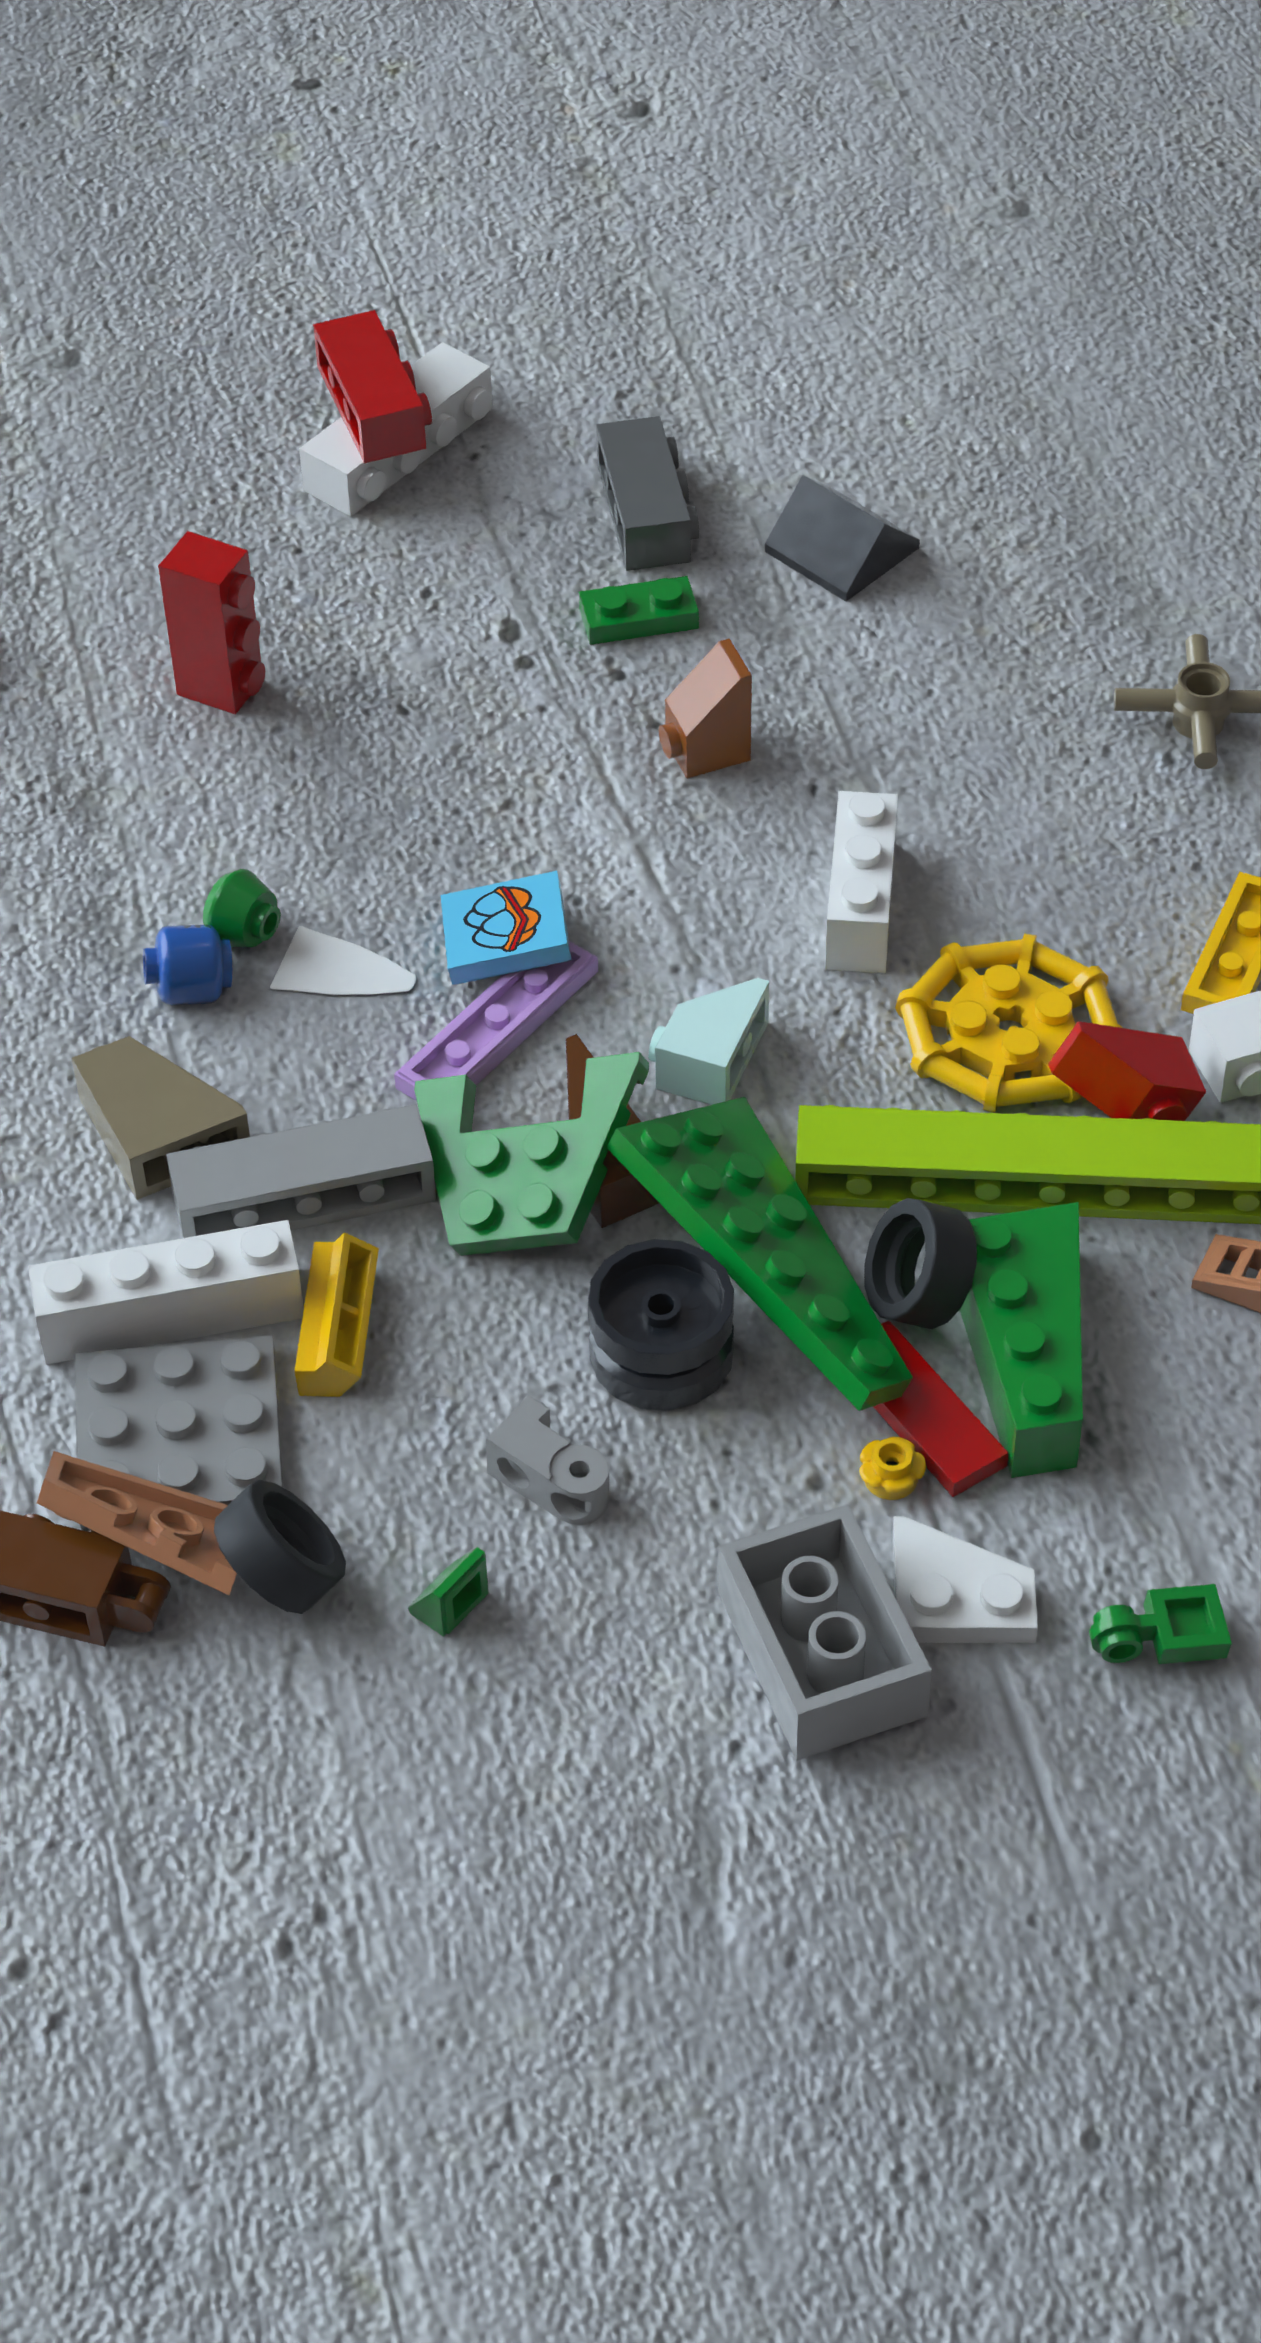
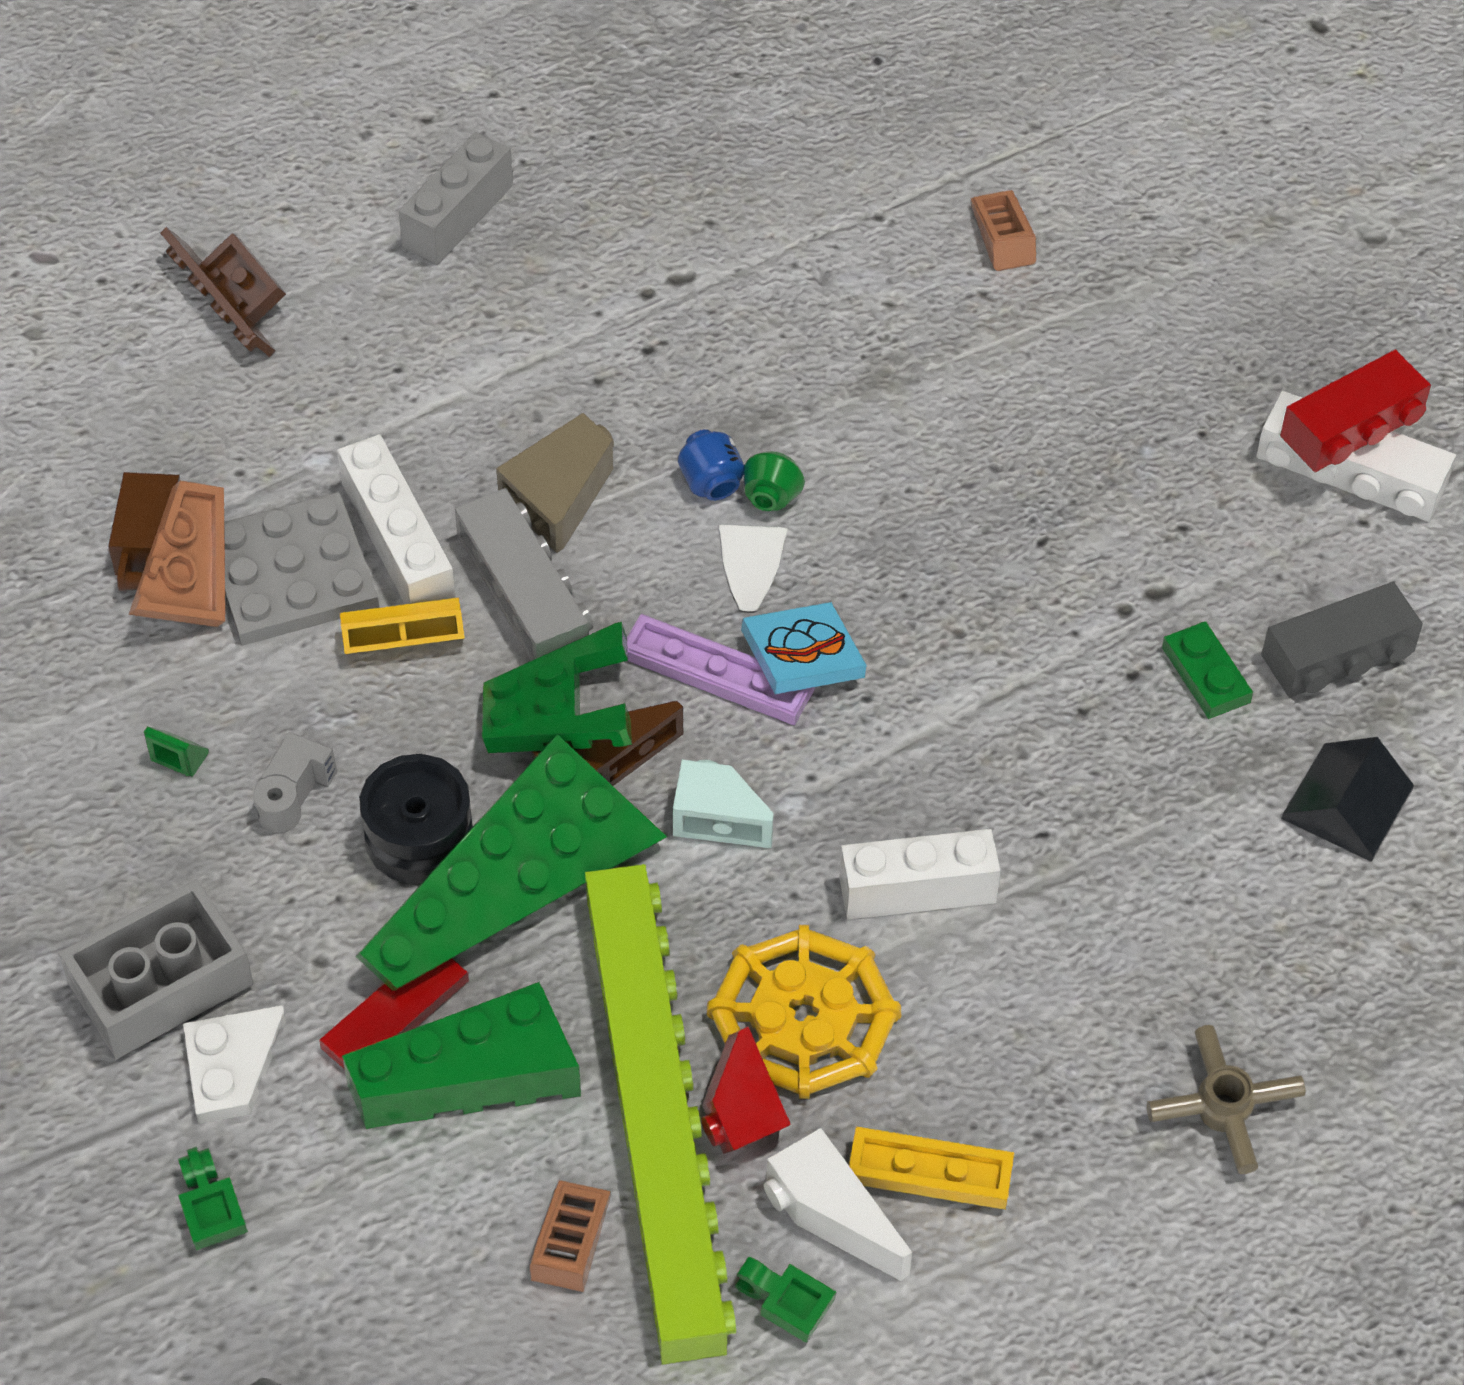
camera: 75 degrees right, 5 degrees up
(212, 622) = (1034, 375): red brick -> none
(279, 1546) = (208, 639): black tyre -> none
(710, 714) = (1069, 734): dark orange slope -> none
(891, 1481) = (332, 1010): yellow plate -> none
(945, 1271) = (502, 971): black tyre -> none

